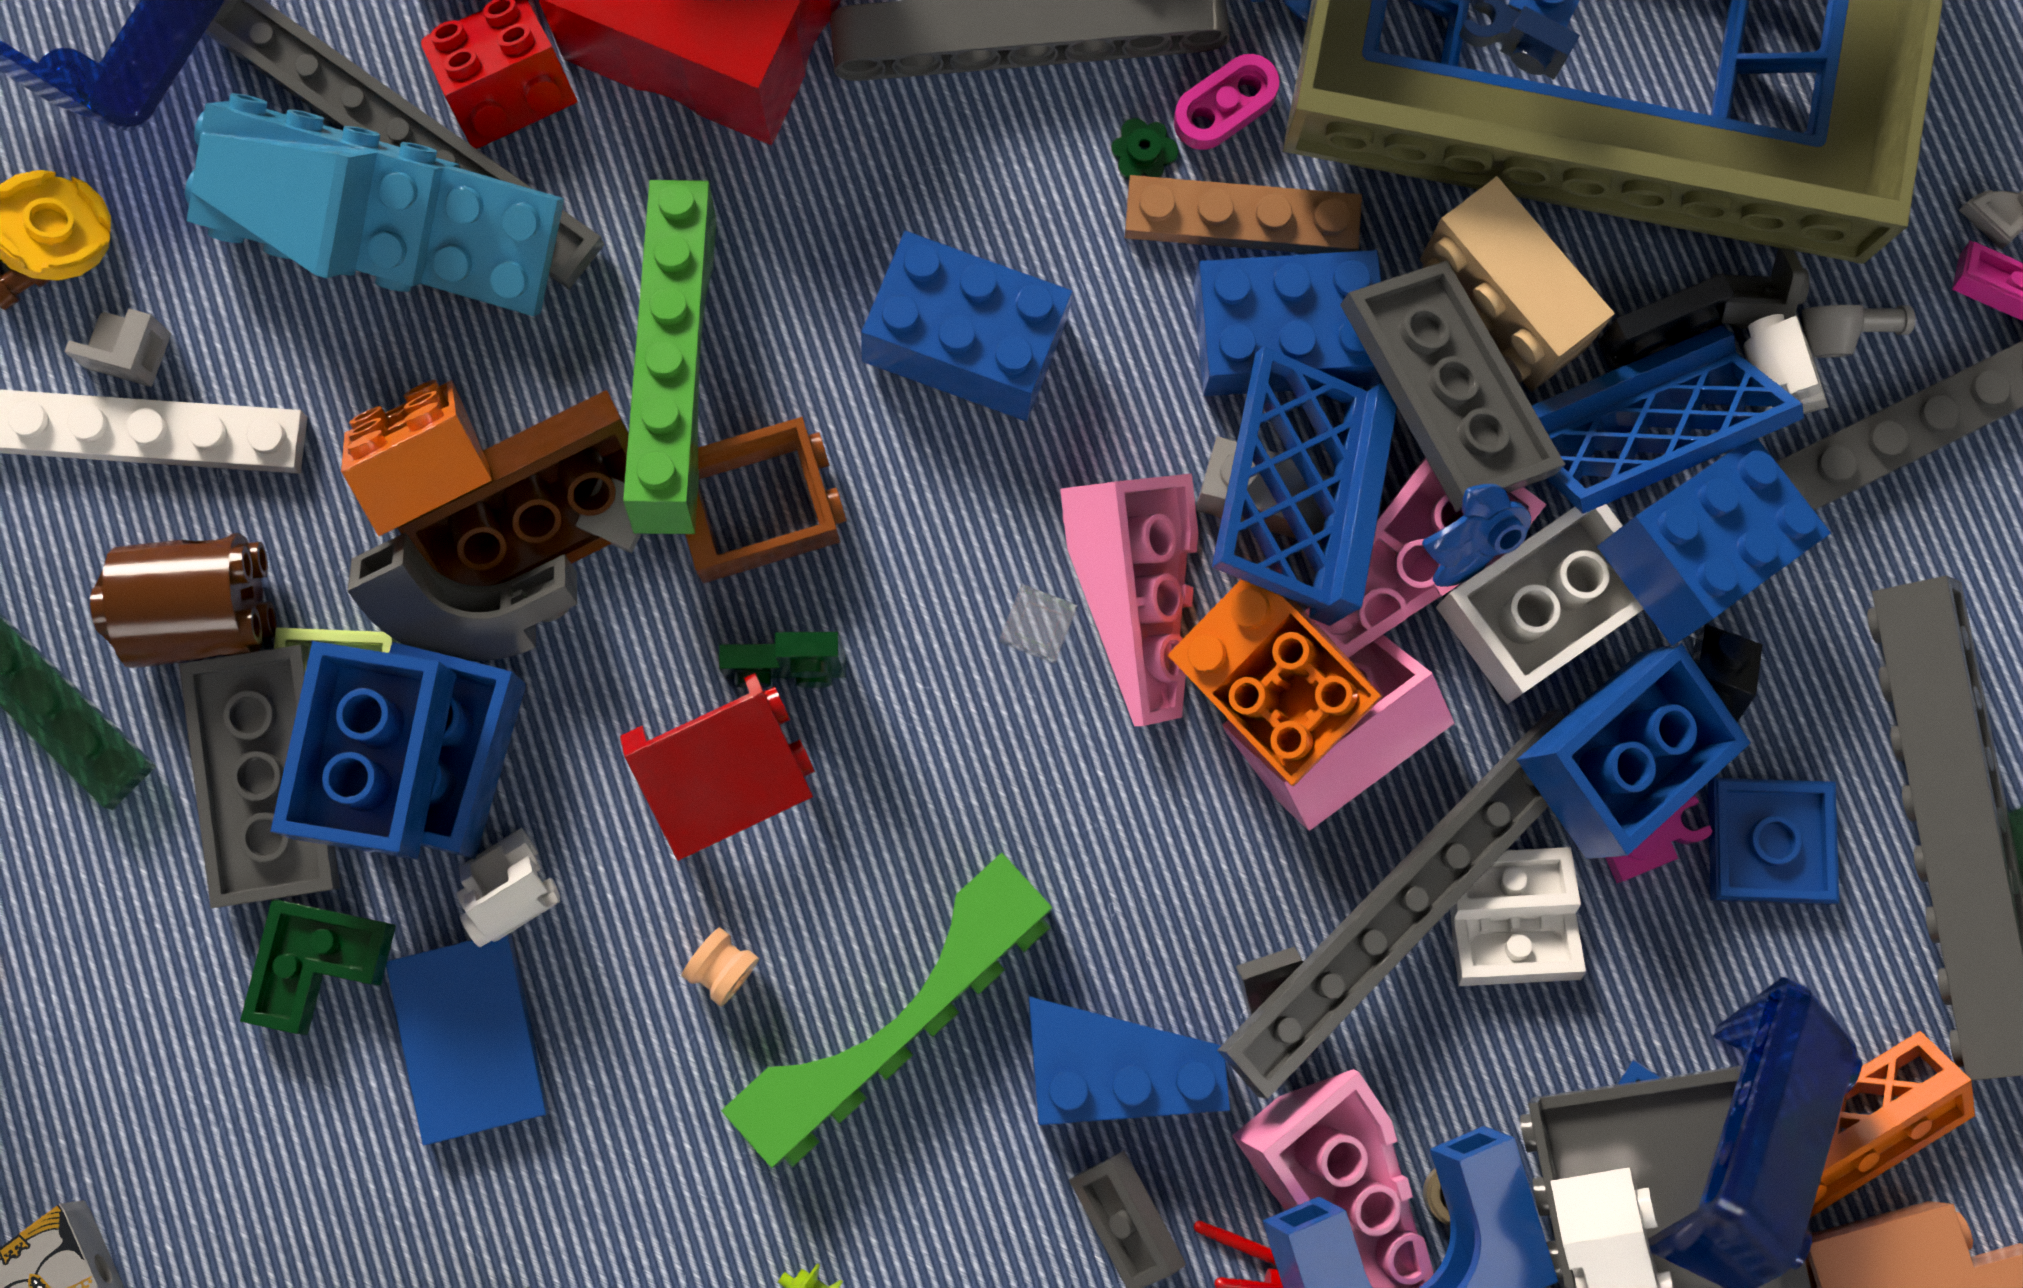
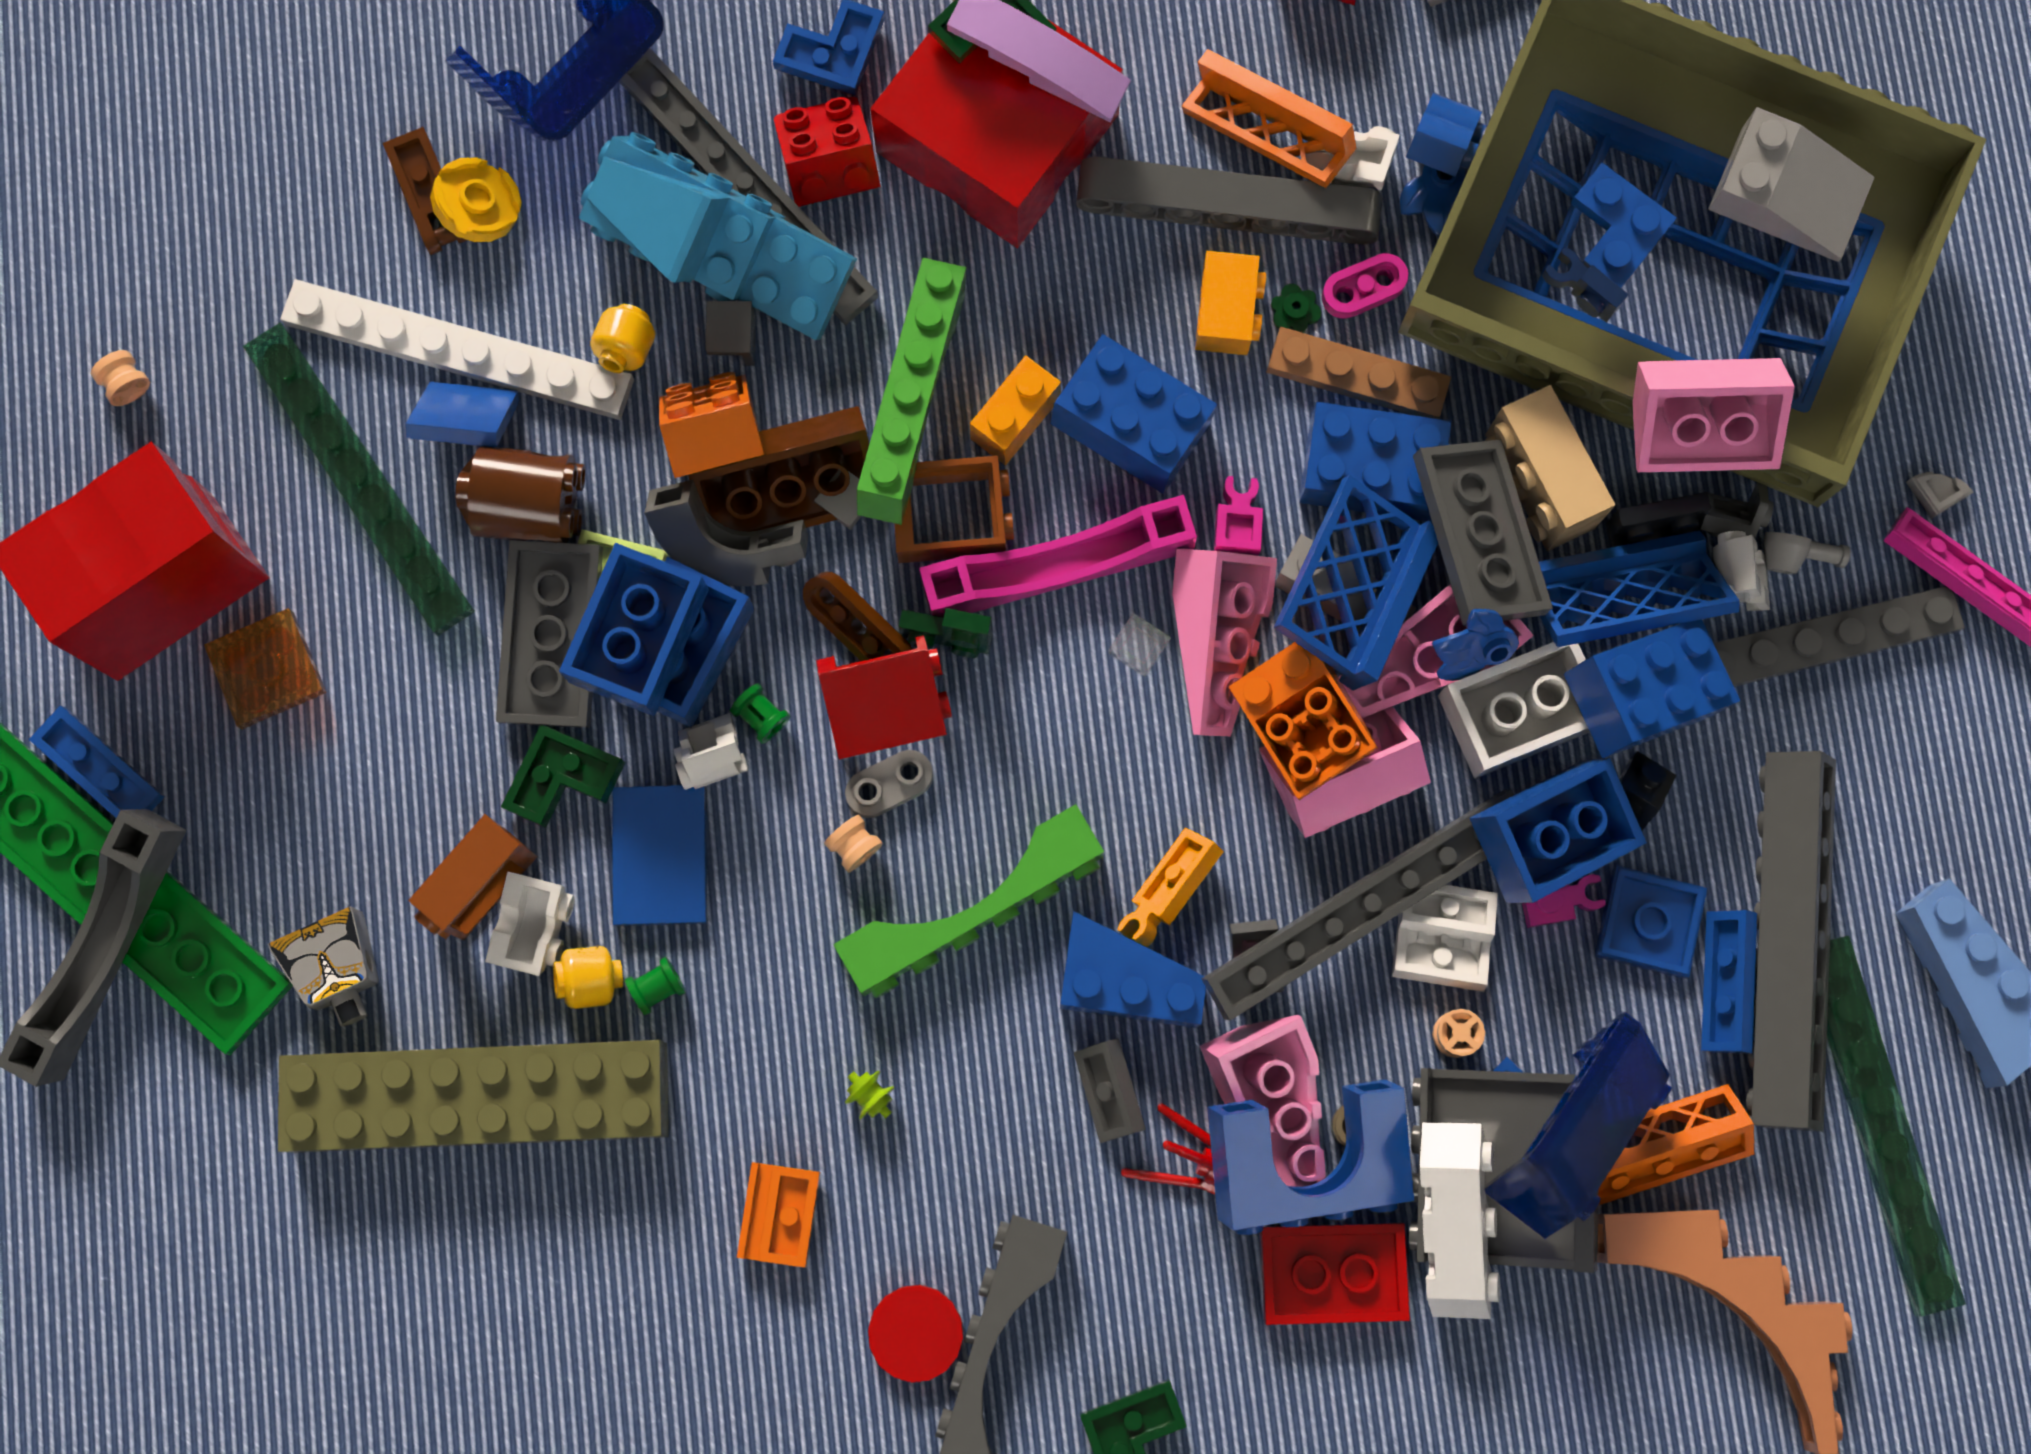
camera: 15 degrees right, 0 degrees up
(83, 510) = (462, 414): none -> blue tile
(124, 347) = (512, 300): light grey panel -> none
(216, 1131) = (470, 880): none -> dark orange window
(278, 366) = (622, 338): none -> yellow head
(310, 1173) = (529, 924): none -> white cylinder
(401, 1225) = (586, 977): none -> yellow head
(419, 325) = (731, 329): none -> dark grey panel
(496, 1216) = (655, 986): none -> green bush
(561, 821) = (759, 713): none -> green bush
(656, 670) = (845, 615): none -> reddish brown plate
(750, 875) = (890, 785): none -> light grey plate
(812, 353) = (1015, 410): none -> light orange brick
(979, 502) = (1118, 545): none -> dark pink arch
(1057, 158) = (1228, 303): none -> light orange brick
(1132, 440) = (1237, 524): none -> dark pink plate
(1147, 932) = (1170, 886): none -> light orange plate
(1574, 1047) = (1465, 1028): none -> light nougat wheel
(1718, 169) = (1711, 414): none -> bright pink slope
(1892, 898) = (1729, 981): none -> blue plate

